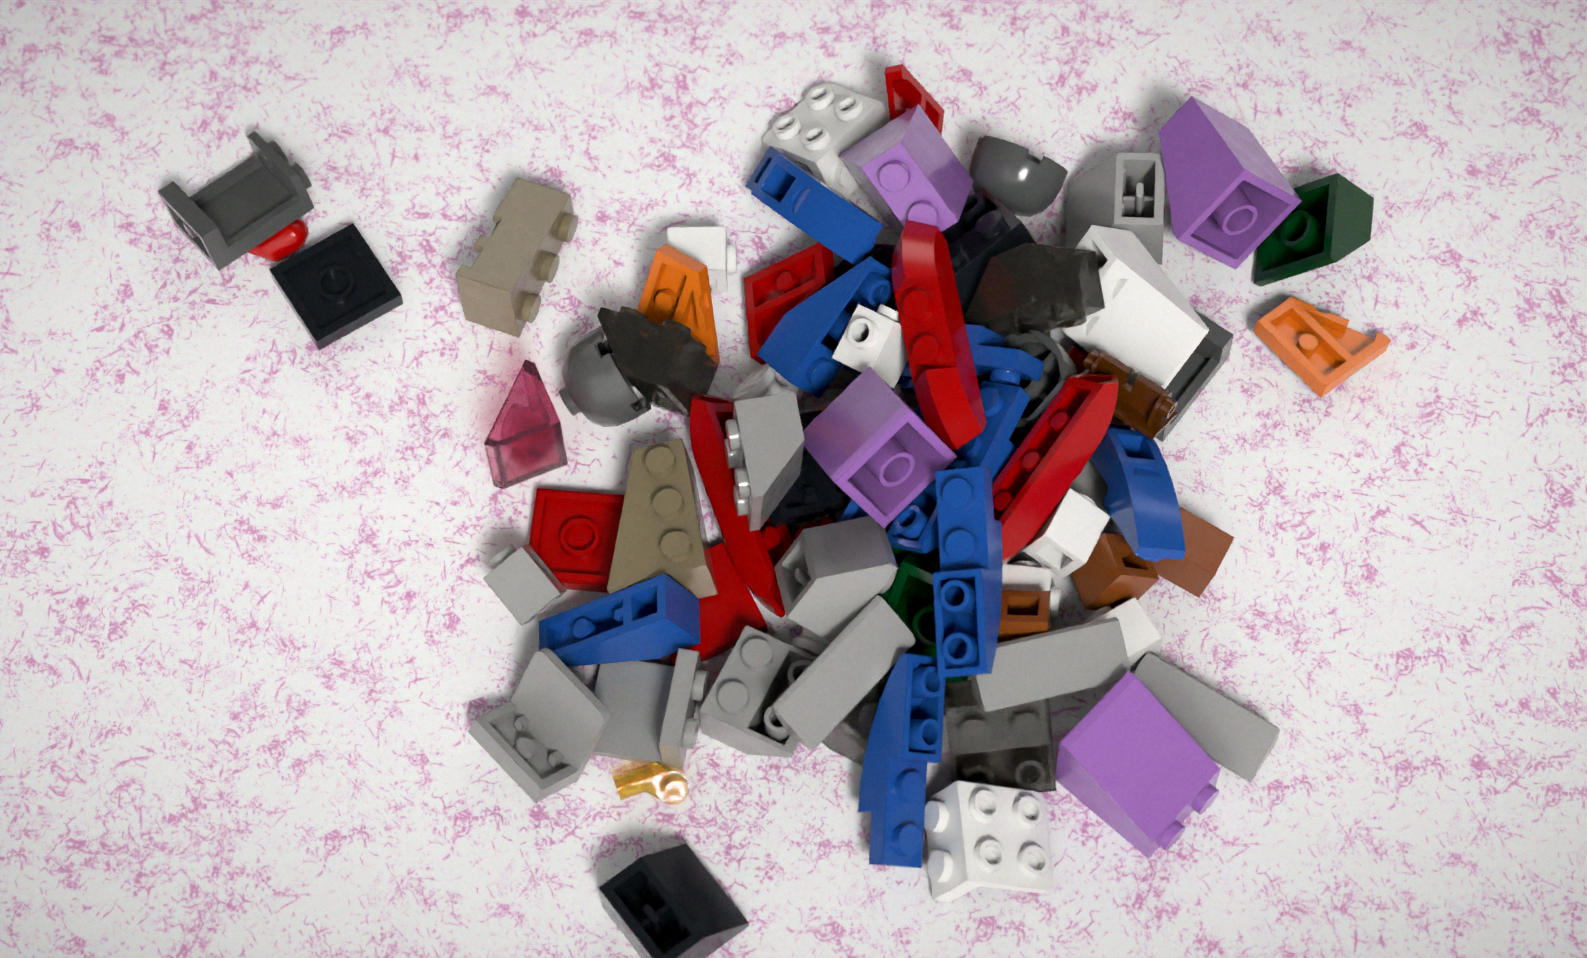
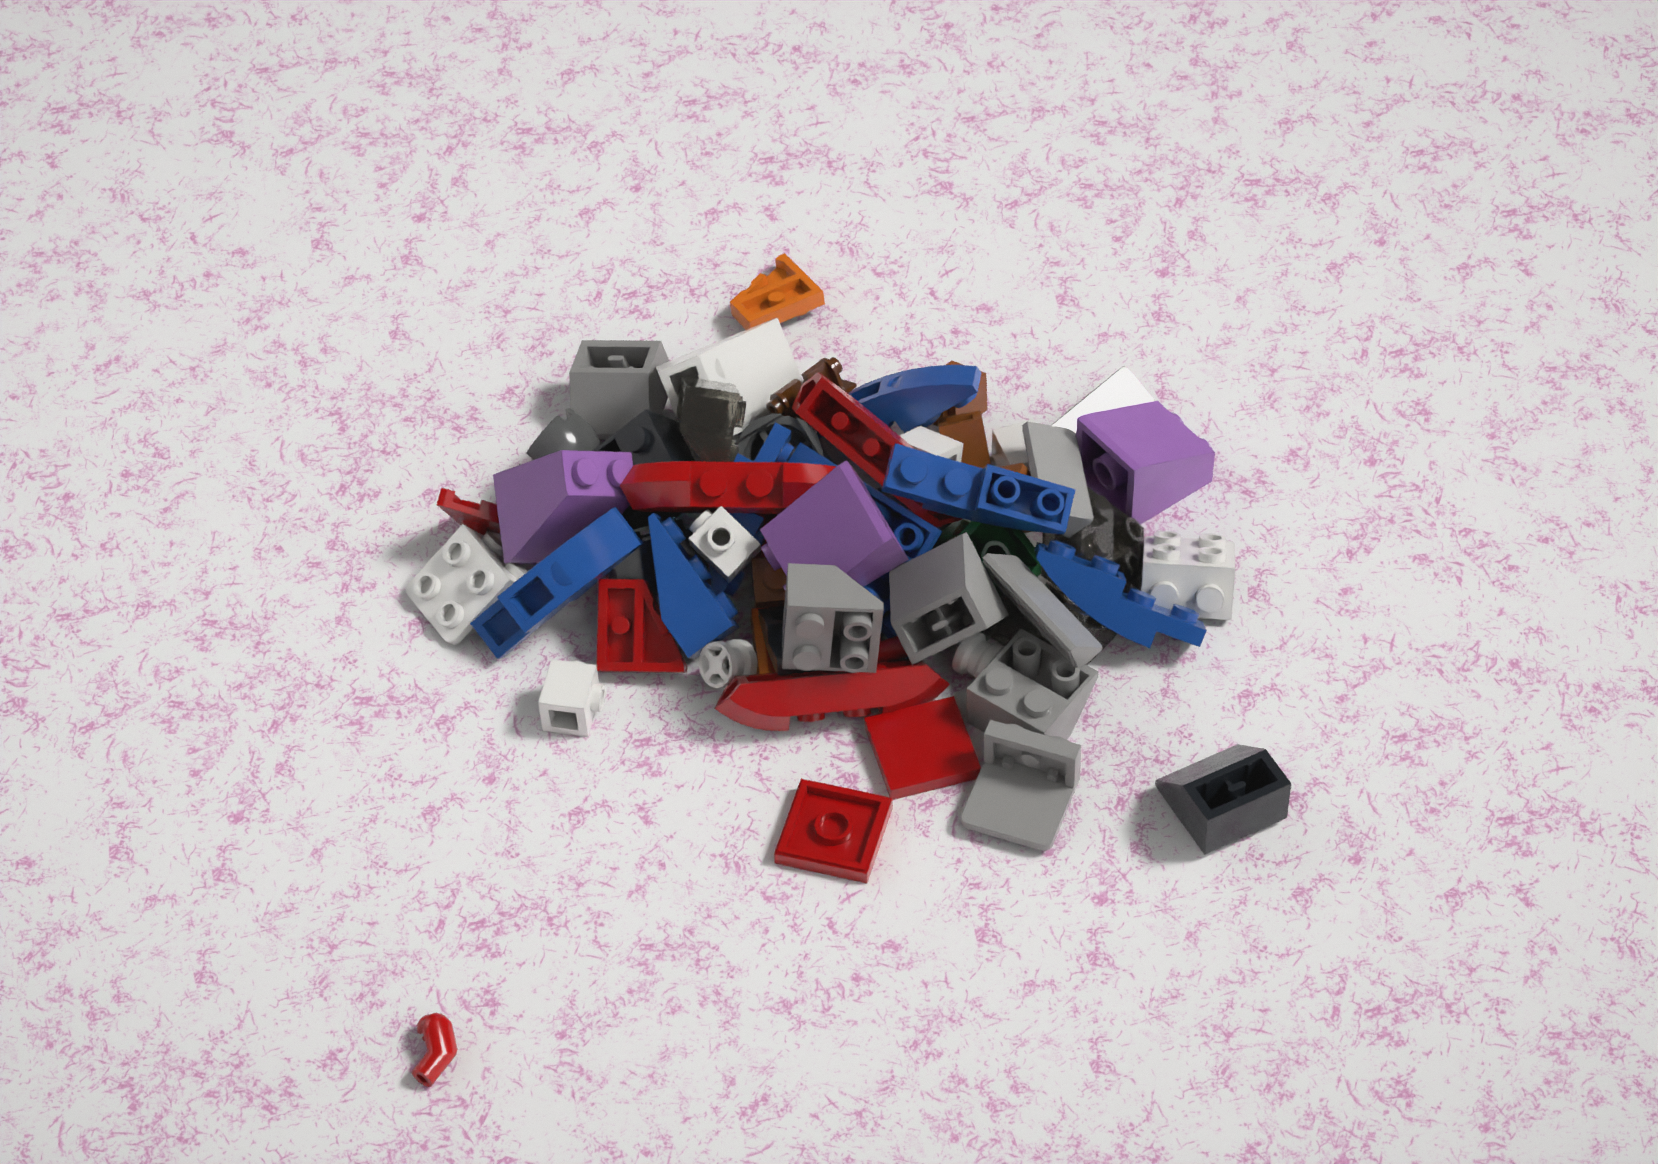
camera: 80 degrees left, 15 degrees down
(242, 204) = (390, 1060): dark grey panel -> none
(336, 286) = (508, 994): black plate -> none
(517, 258) = (528, 832): dark tan wedge -> none
(523, 582) = (881, 860): light grey brick -> none
(526, 433) = (718, 833): clear pink slope -> none
(544, 729) = (1029, 858): light grey bracket -> none
(597, 385) = (684, 777): dark grey cylinder -> none
(626, 625) = (942, 792): blue slope -> none
(655, 780) = (1089, 798): clear yellow arm -> none
(658, 358) = (681, 724): clear smoke slope -> none
(662, 523) = (851, 746): dark tan wedge -> none
(681, 292) = (623, 710): orange wing -> none
(1221, 184) = (616, 307): medium lavender slope -> none
(1318, 232) = (672, 282): dark green slope -> none

